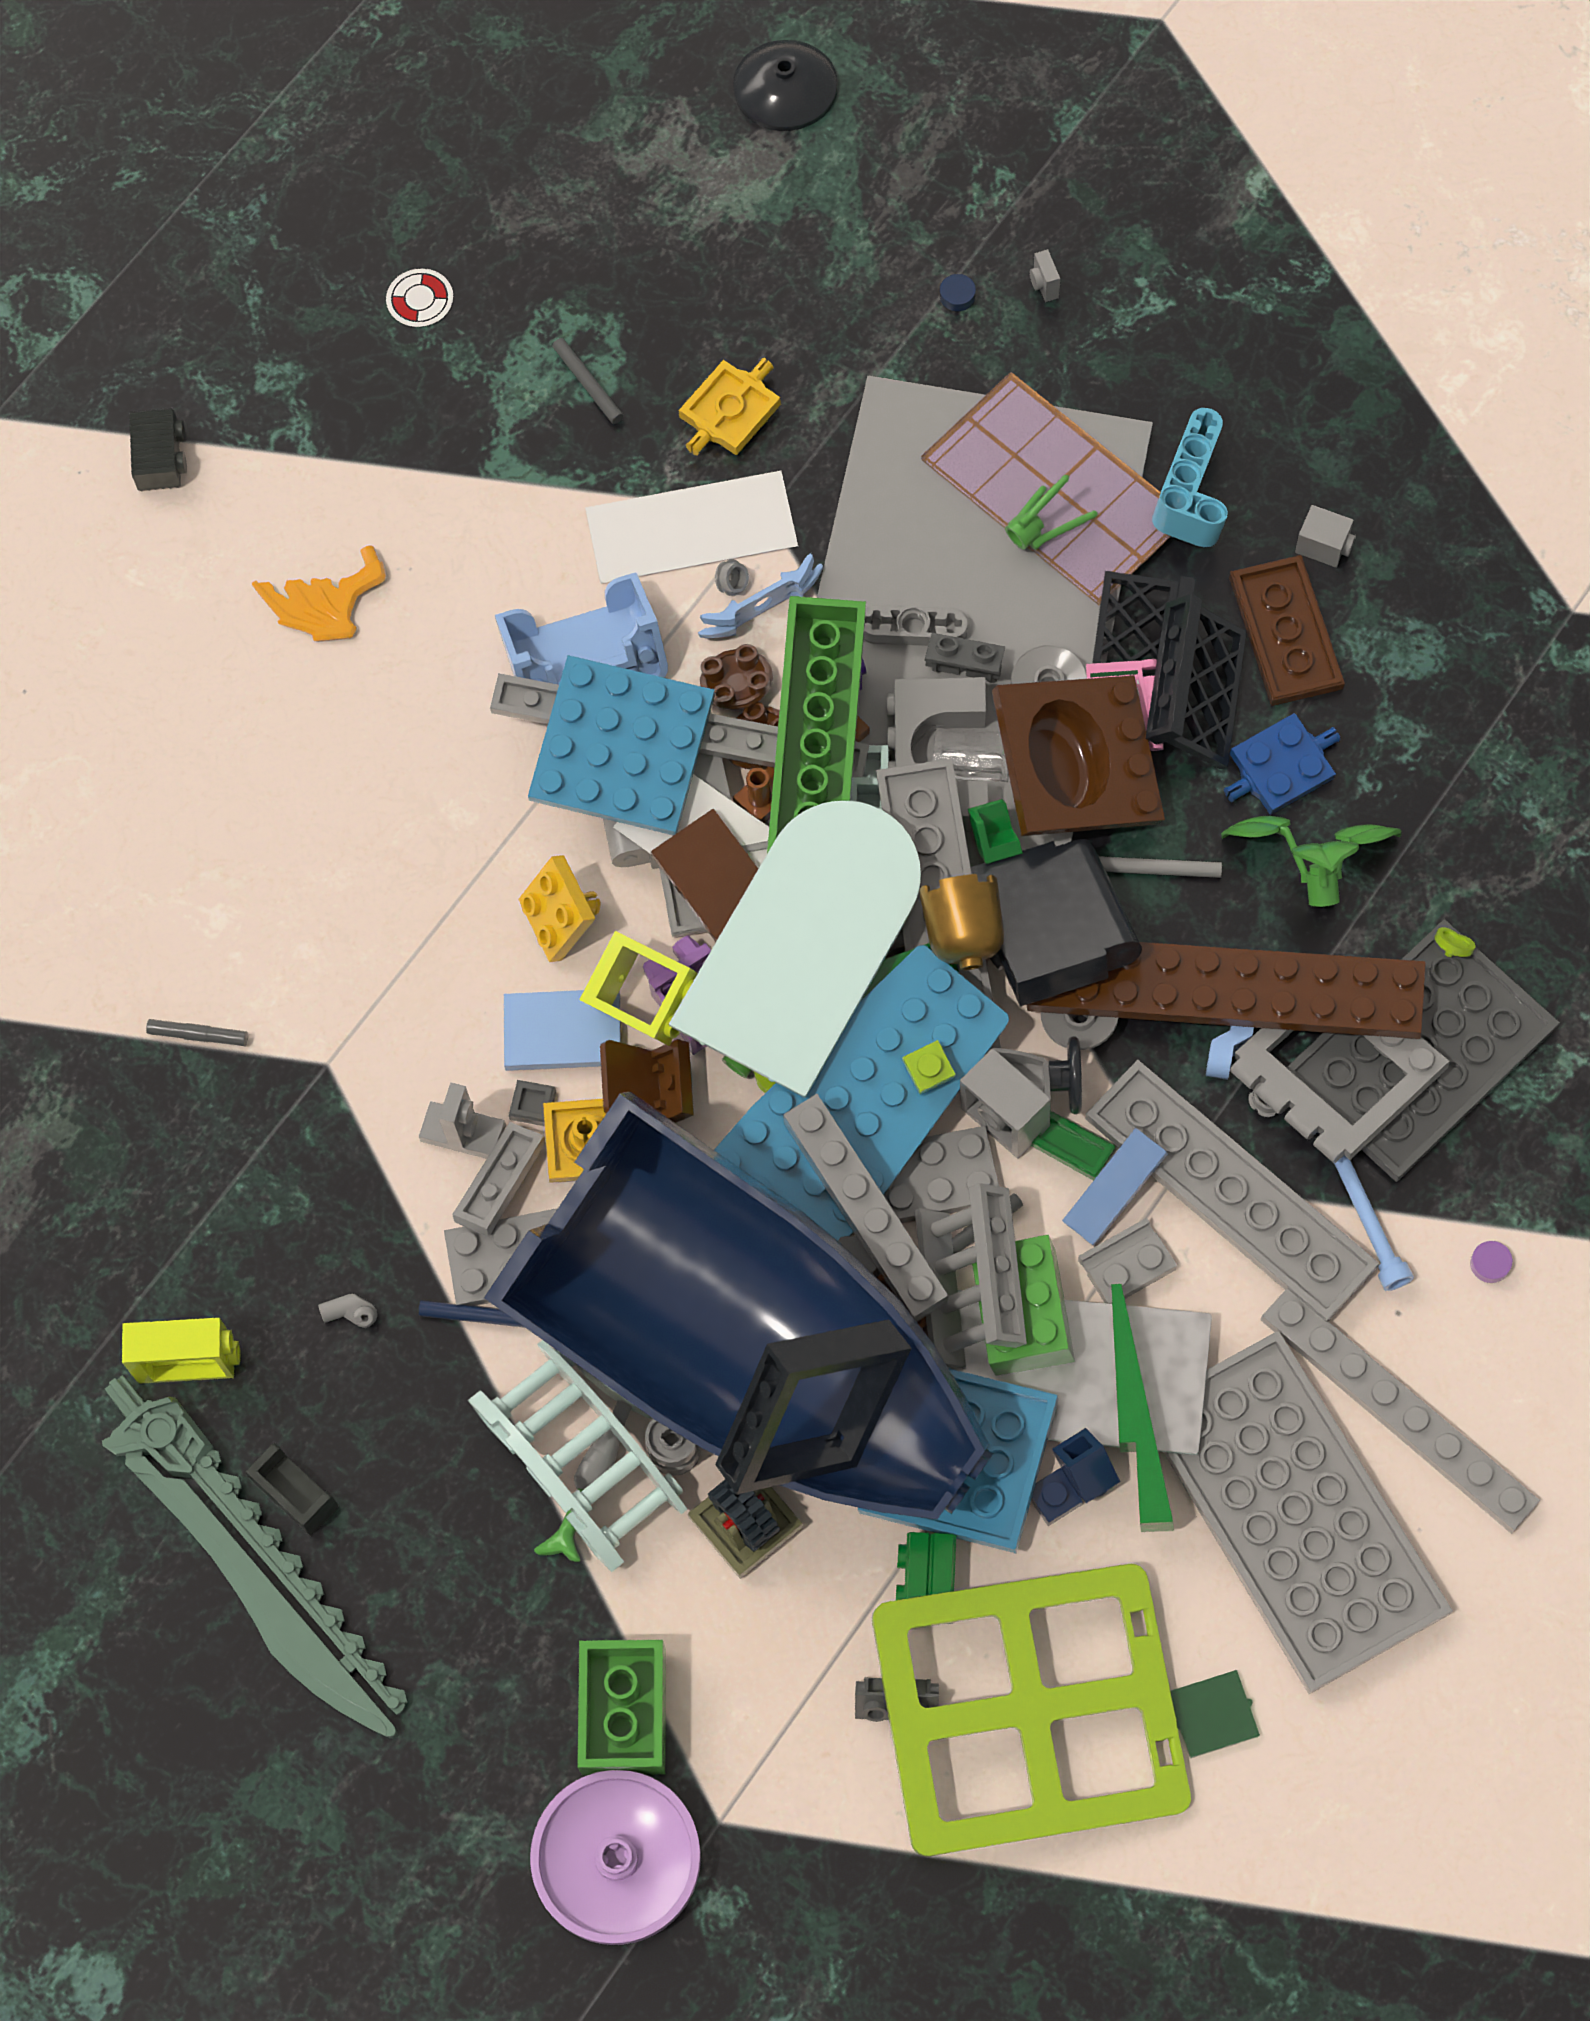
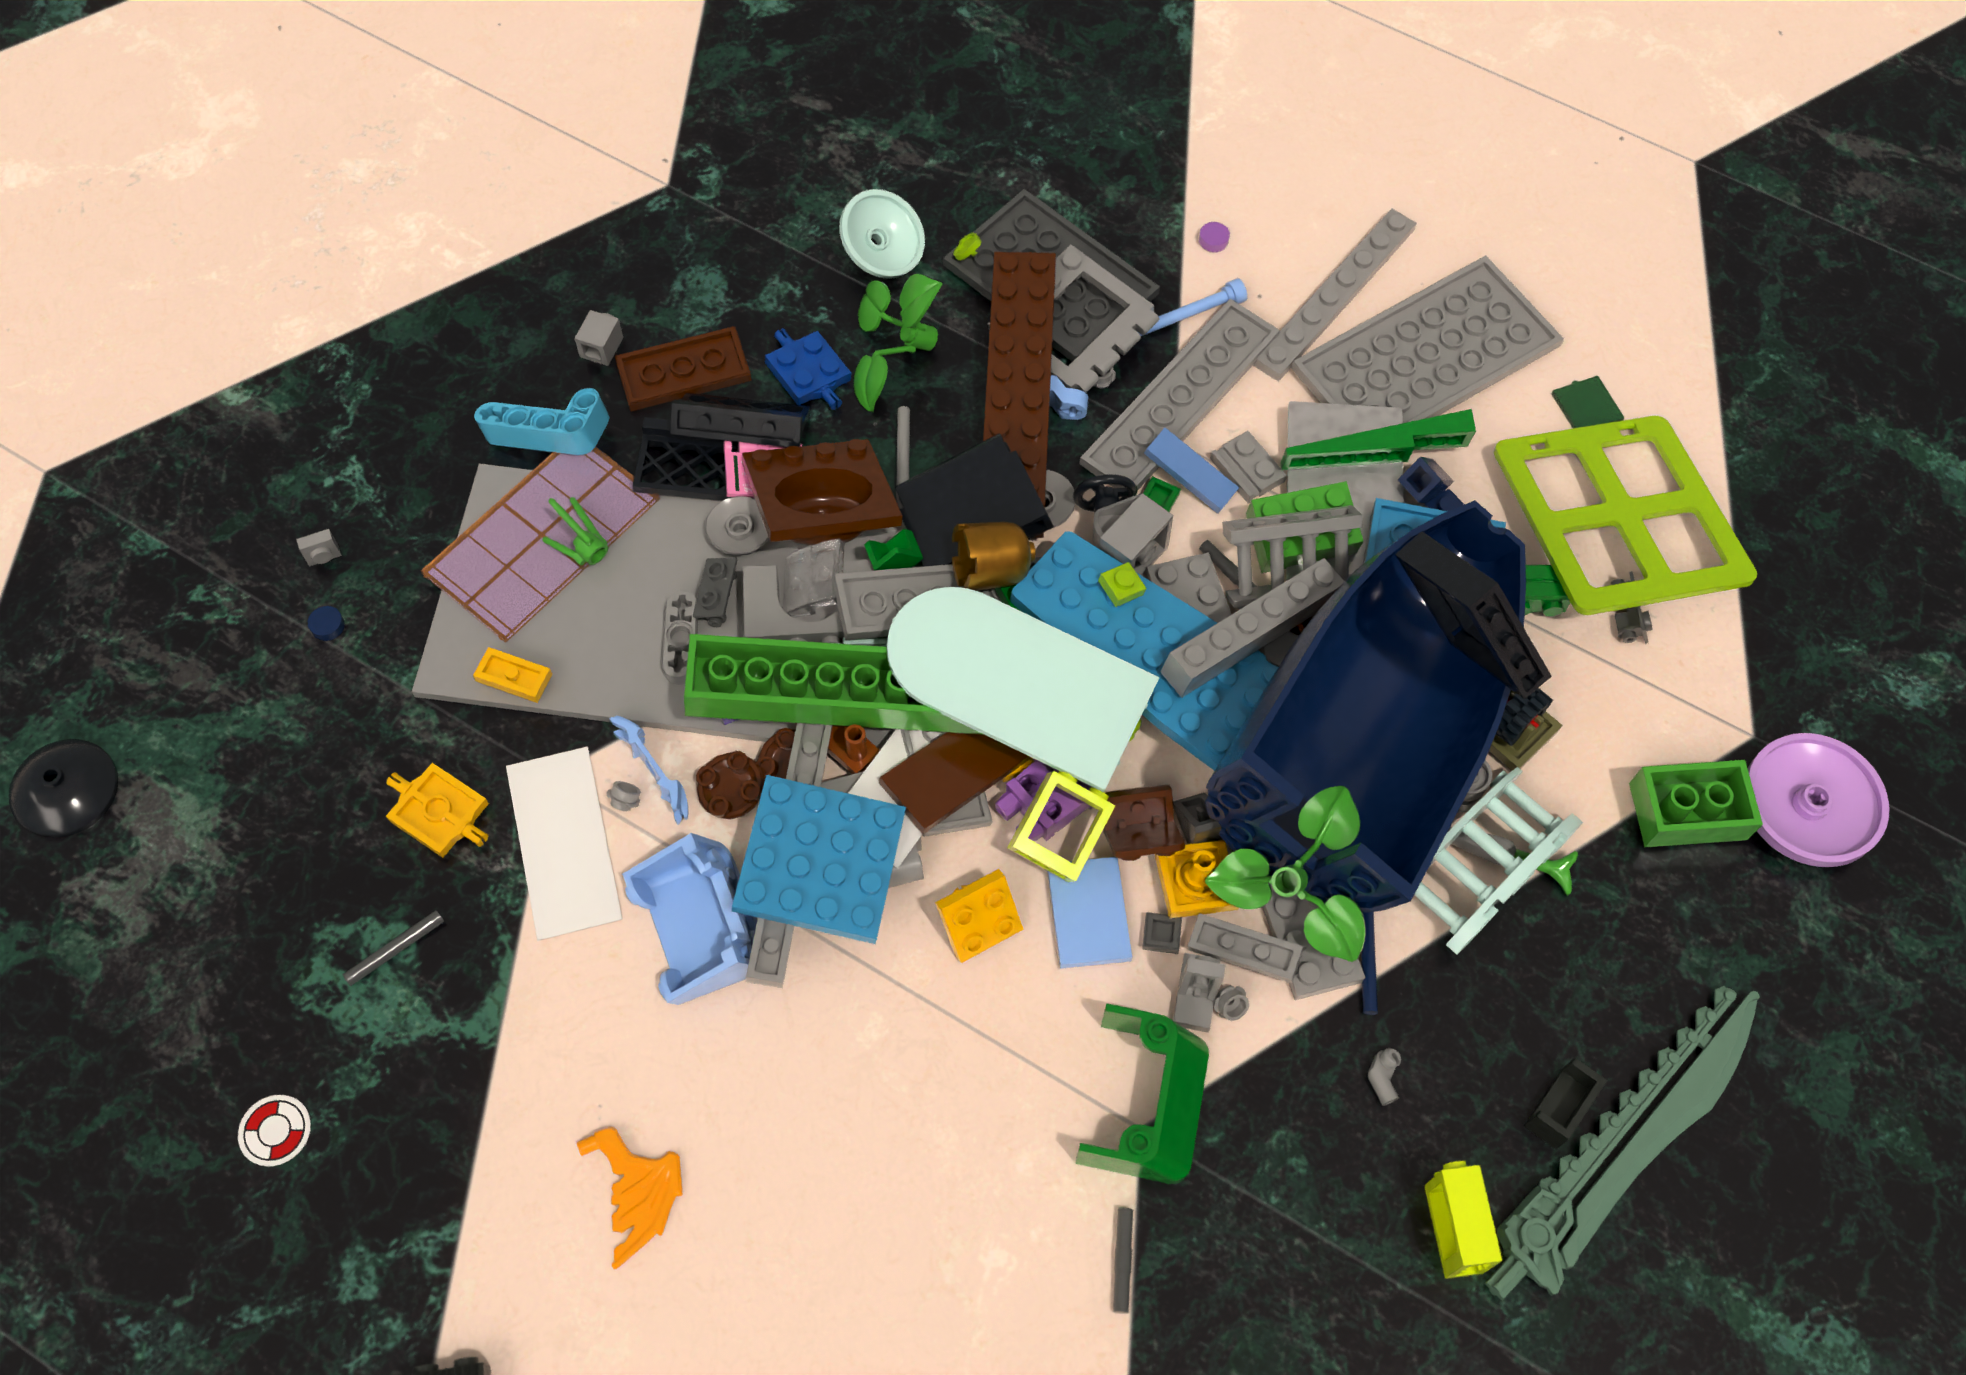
camera: 100 degrees left, 5 degrees down
(345, 1091) = (1166, 1149): none -> green windscreen
(443, 1160) = (1231, 1003): none -> light grey plate
(595, 1251) = (1243, 877): none -> bright green plant
(874, 463) = (512, 674): none -> yellow plate
(1446, 851) = (891, 224): none -> light aqua dish

